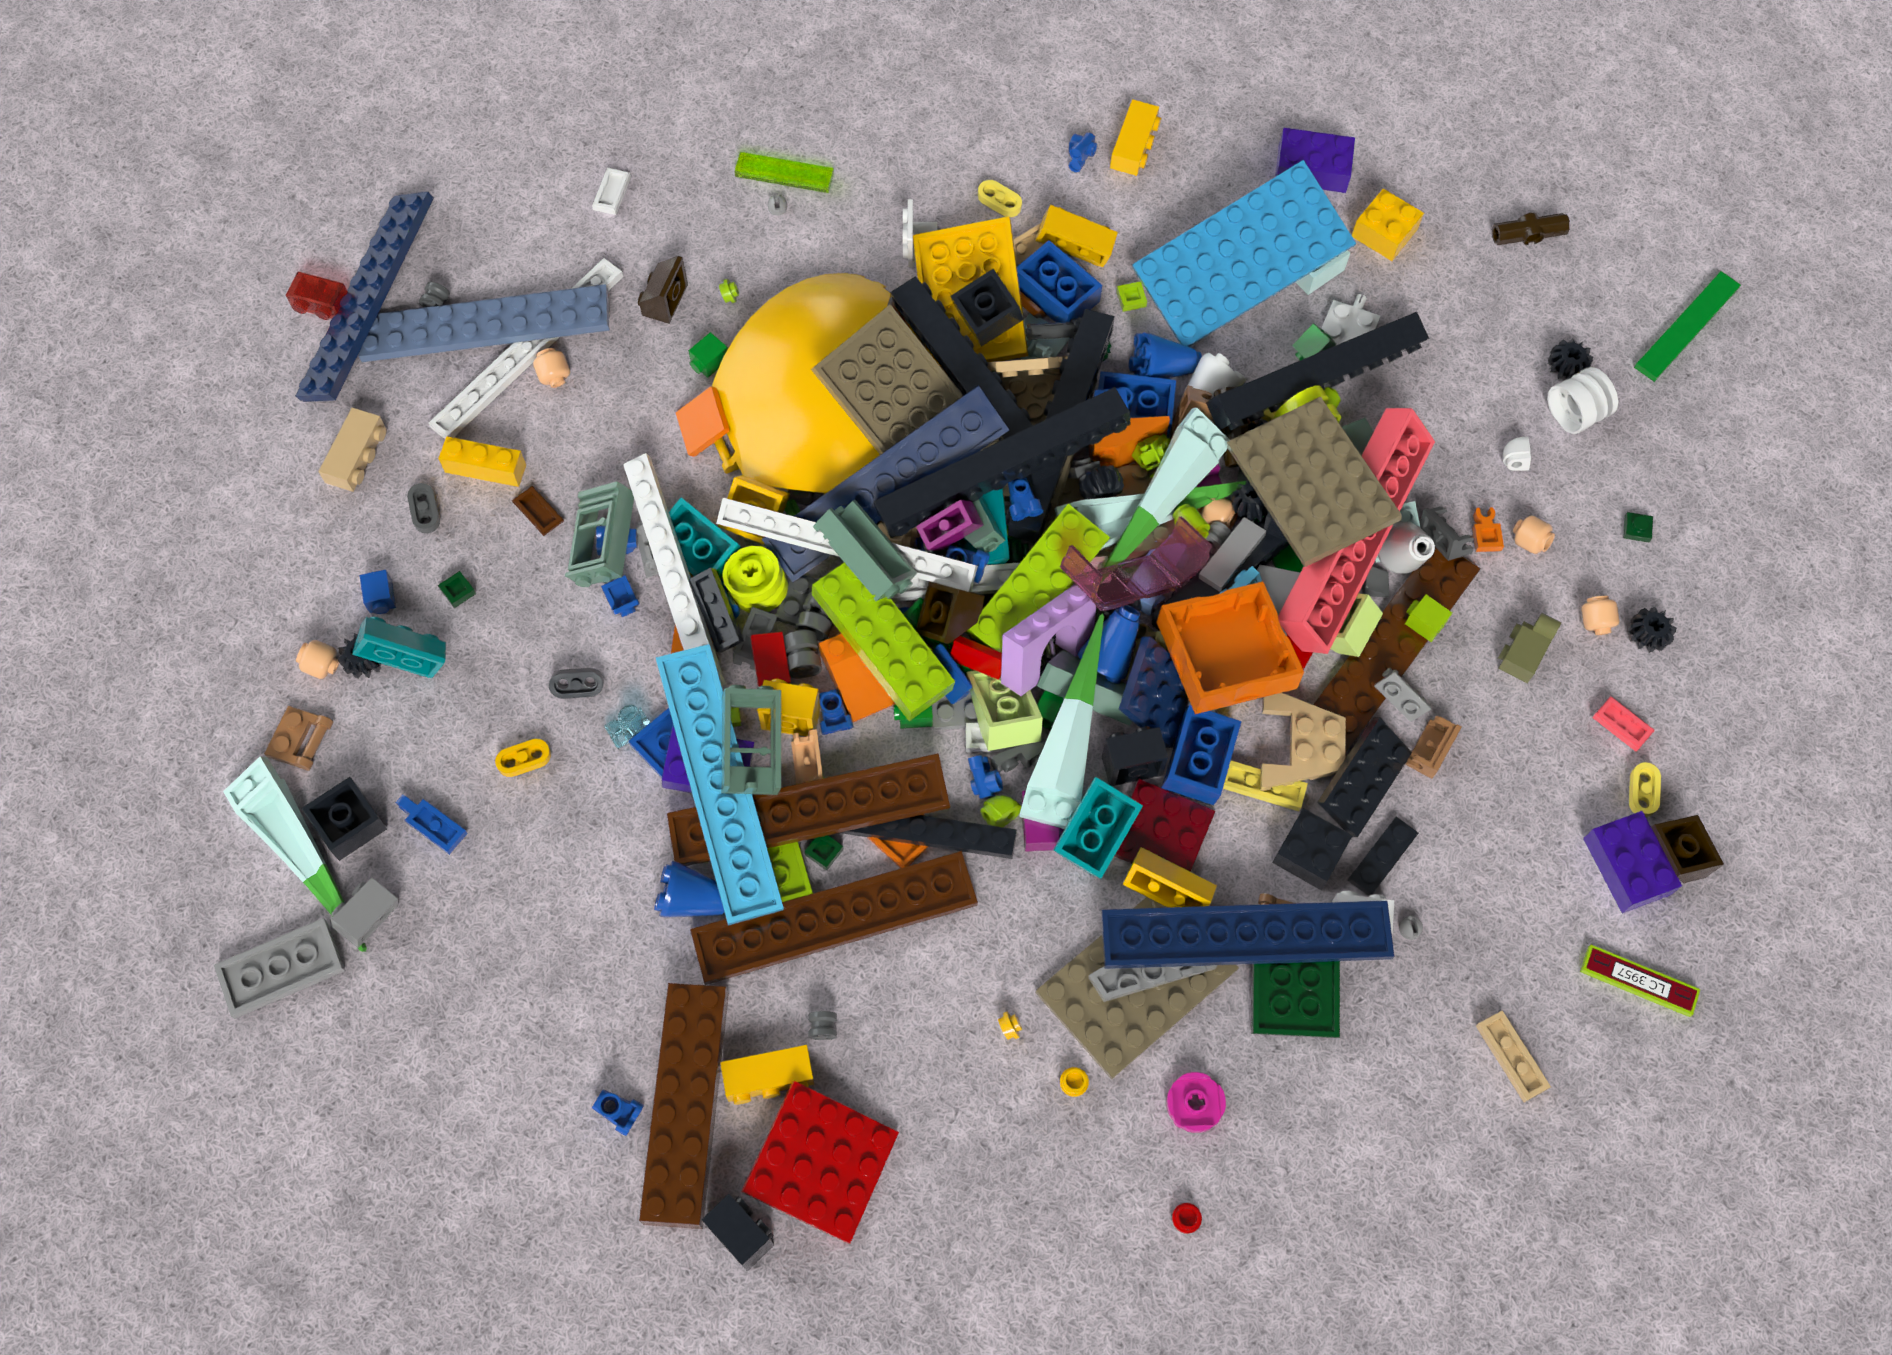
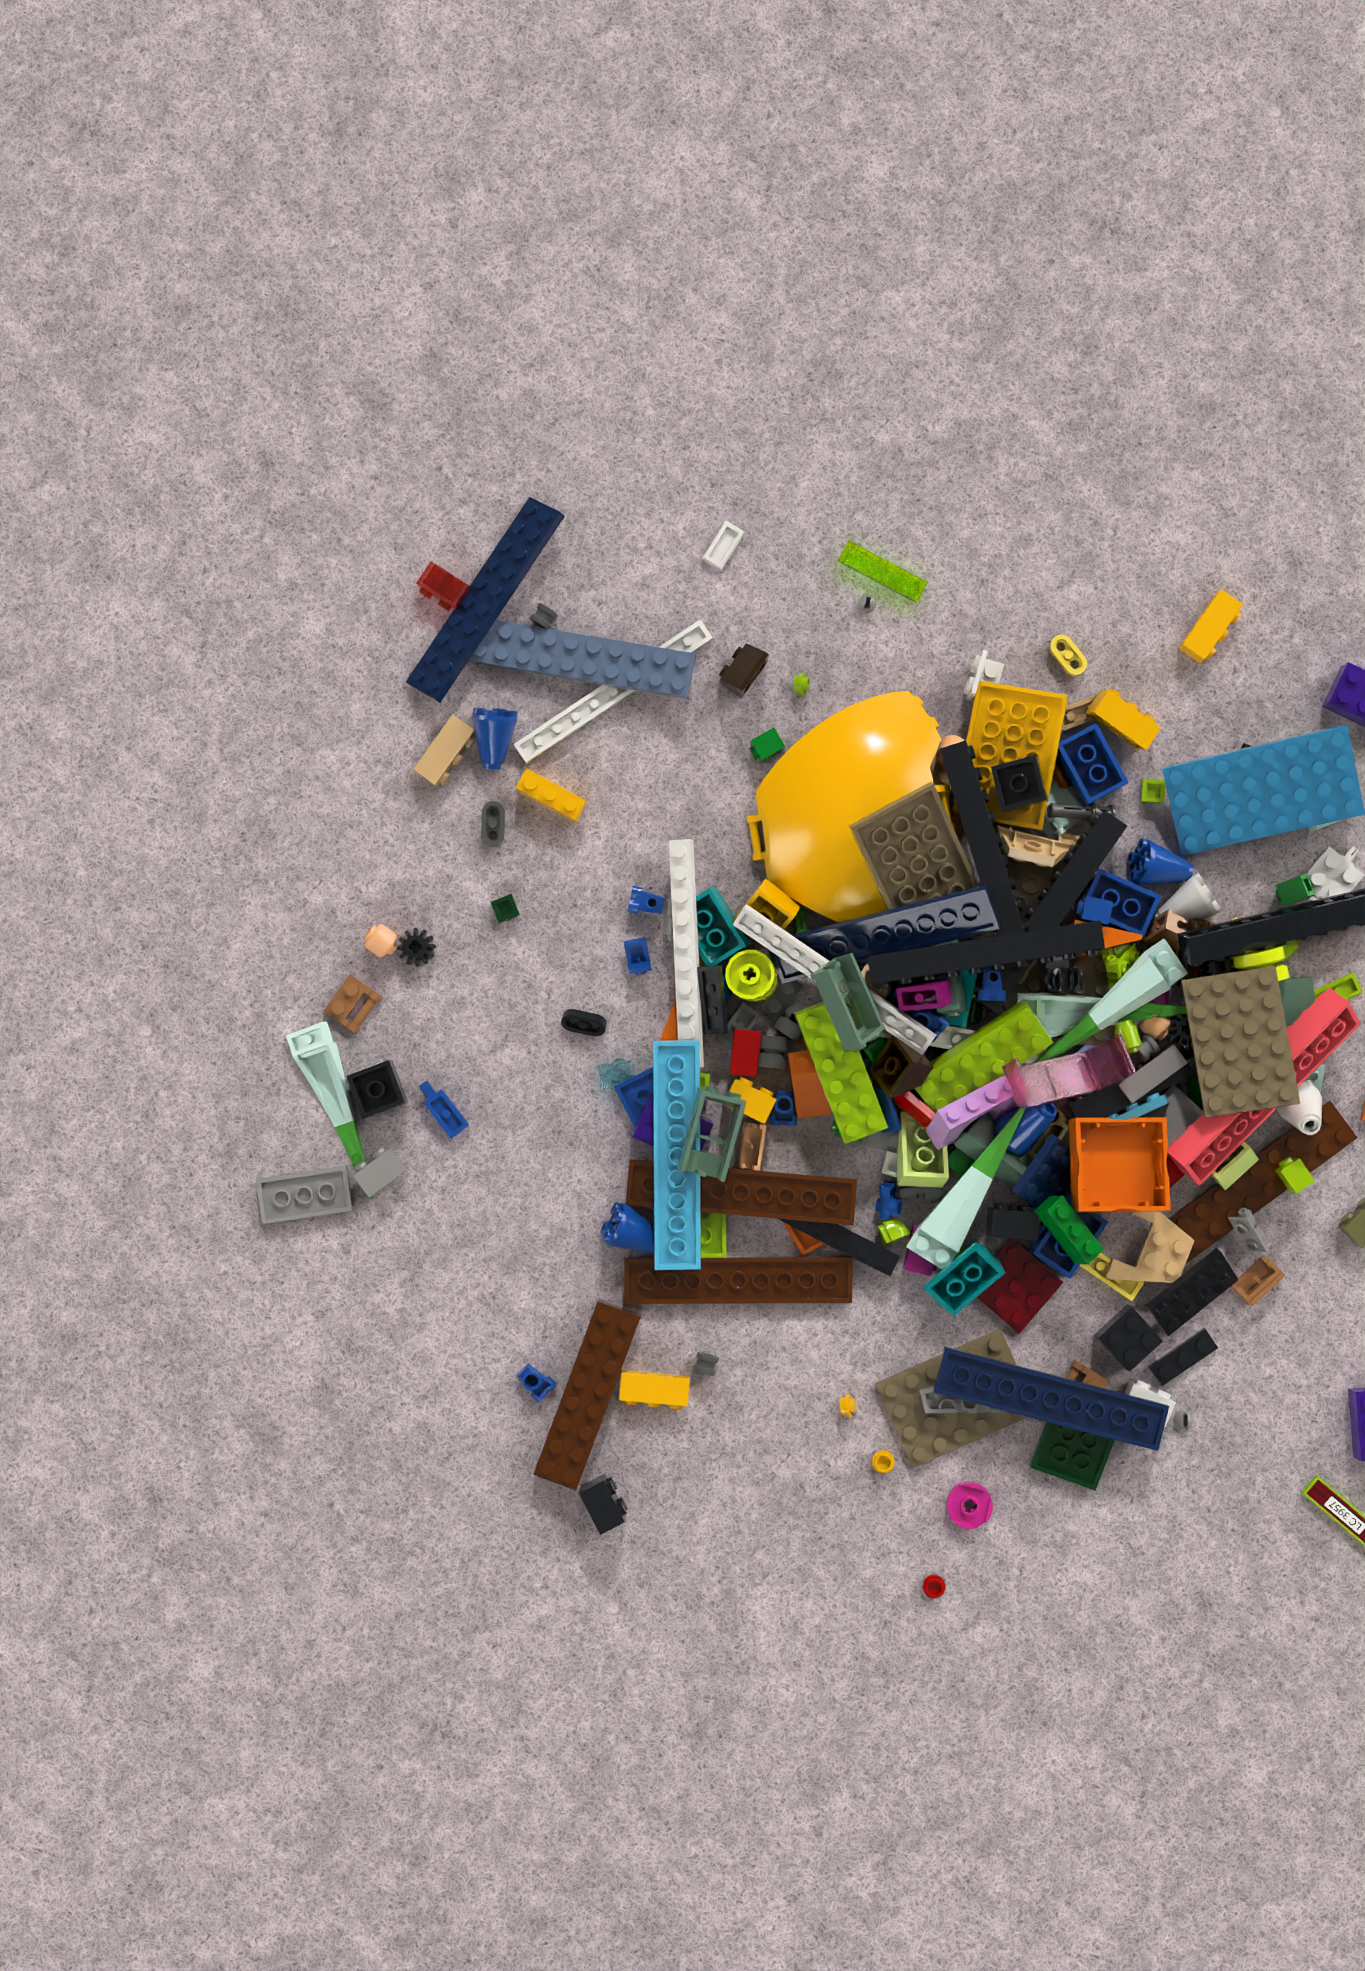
camera: 20 degrees right, 20 degrees up
(377, 592) = (440, 894): blue brick -> none
(400, 647) = (450, 955): teal slope -> none
(403, 416) = (493, 734): none -> blue cone
(523, 757) = (527, 1075): yellow plate -> none
(538, 510) = (587, 853): reddish brown tile -> none
(551, 367) = (629, 718): light nougat head -> none
(610, 566) = (657, 876): sand green door -> none
(702, 421) = (745, 812): orange tile -> none
(820, 1162) = (676, 1467): red plate -> none
(824, 851) = (744, 1225): dark green plate -> none
(1079, 150) = (1159, 622): blue plate -> none
(1167, 882) = (1005, 1336): yellow brick -> none
(1199, 733) = (1069, 1230): none -> green brick
(1376, 583) = (1268, 1126): dark grey slope -> none
(1443, 535) = (1338, 1101): dark grey hinge -> none
(1513, 1056) = (1222, 1542): tan plate -> none

